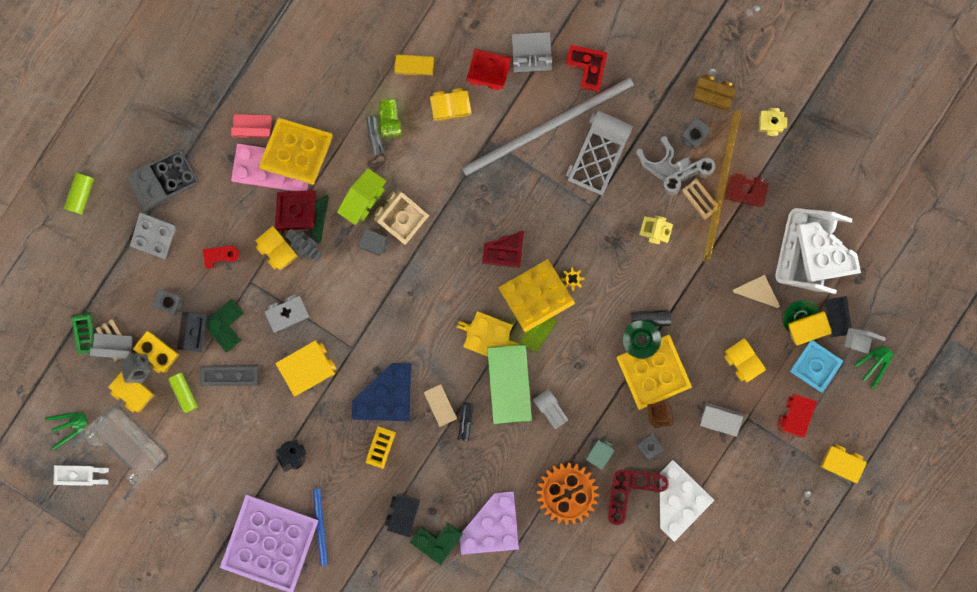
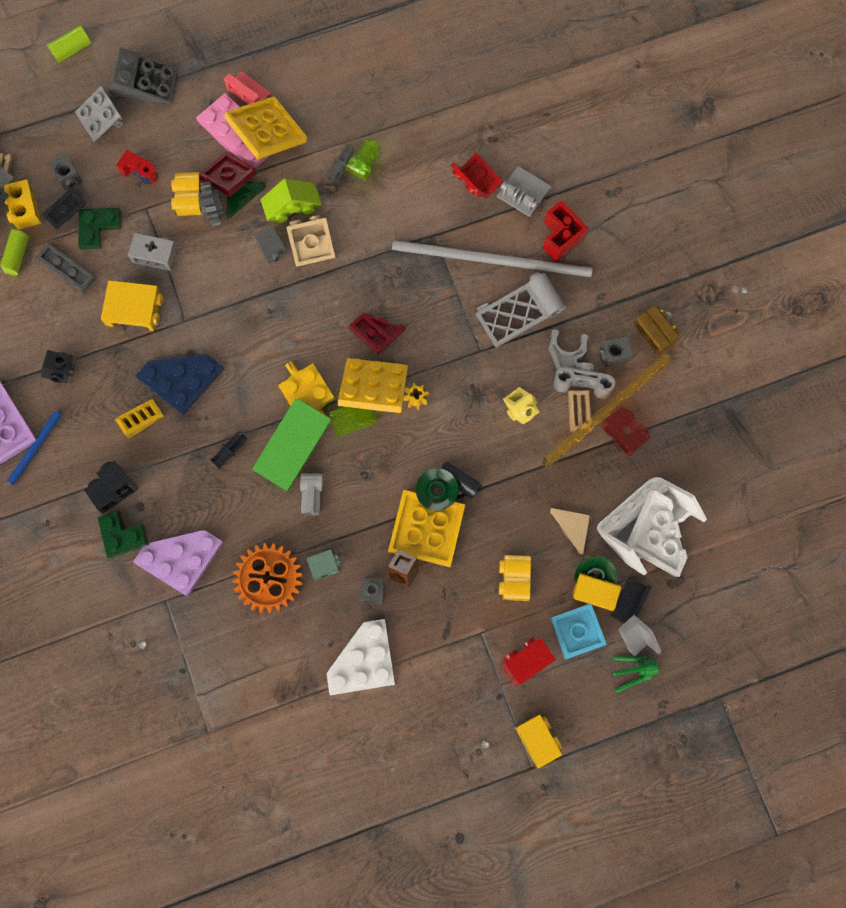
camera: 30 degrees right, 10 degrees down
(414, 65) = (417, 134): yellow slope -> none
(440, 405) = (219, 420): tan tile -> none
(450, 105) = (422, 183): yellow brick -> none
(631, 483) = (329, 611): dark red beam -> none
(721, 419) = (455, 615): light grey hinge -> none
(766, 125) = (691, 388): light yellow brick -> none

